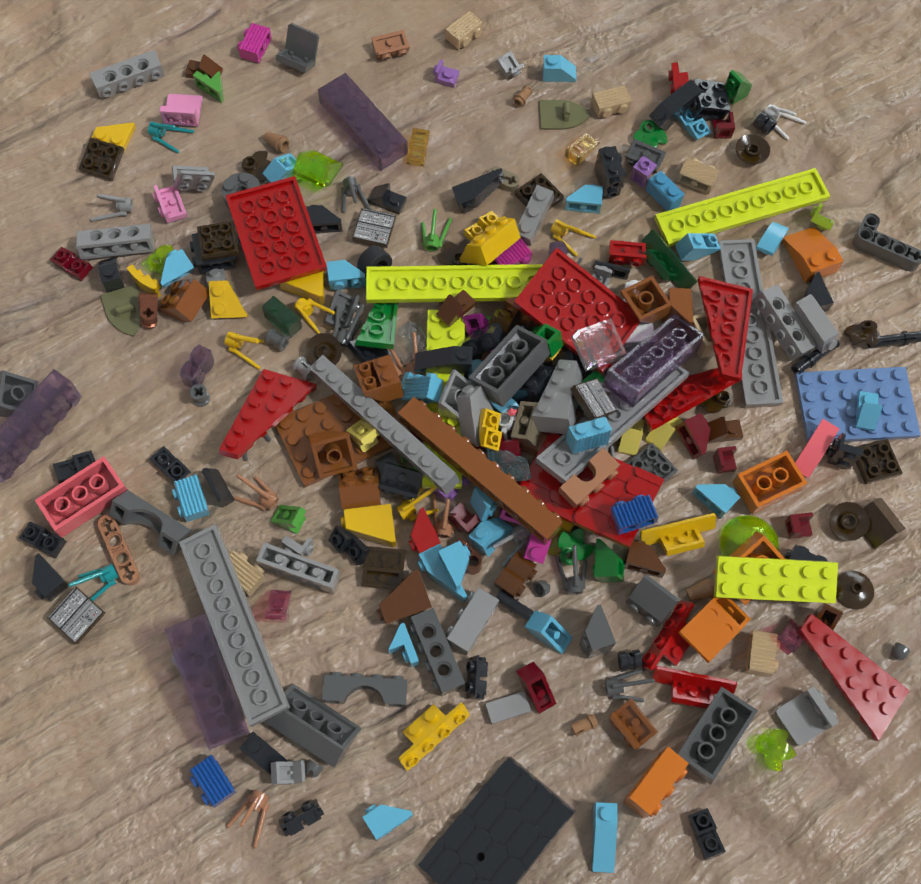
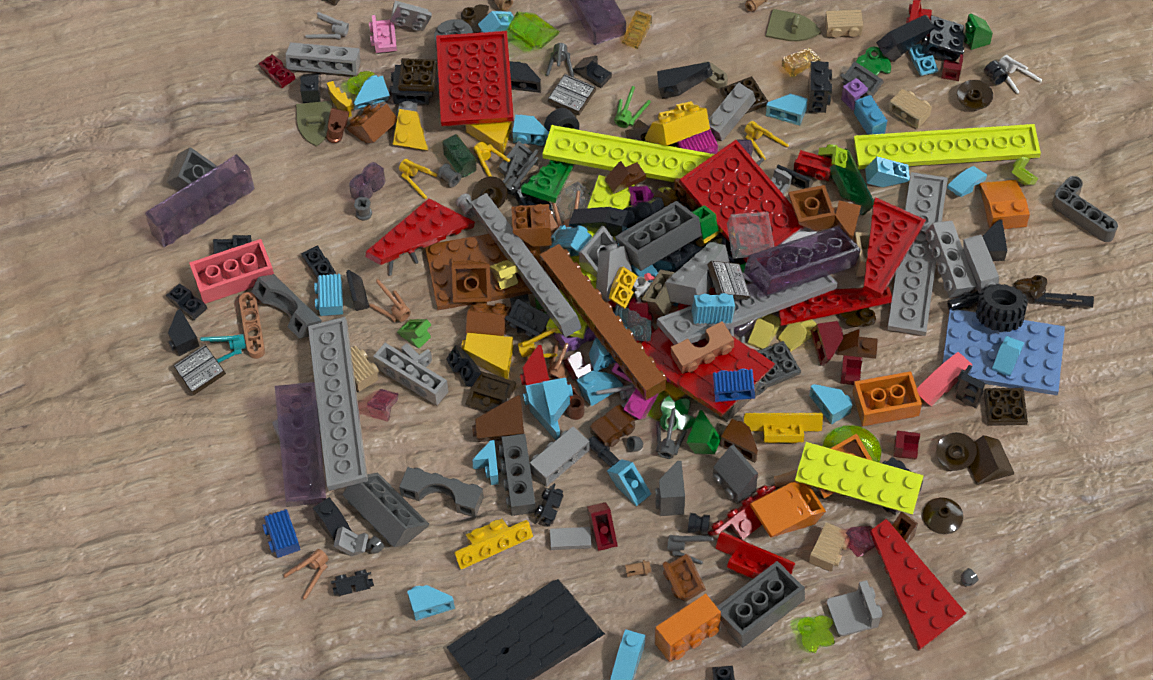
camera: 20 degrees right, 10 degrees down
(648, 236) = (837, 154): none -> lime bracket
(849, 363) = (1001, 307): none -> black tyre

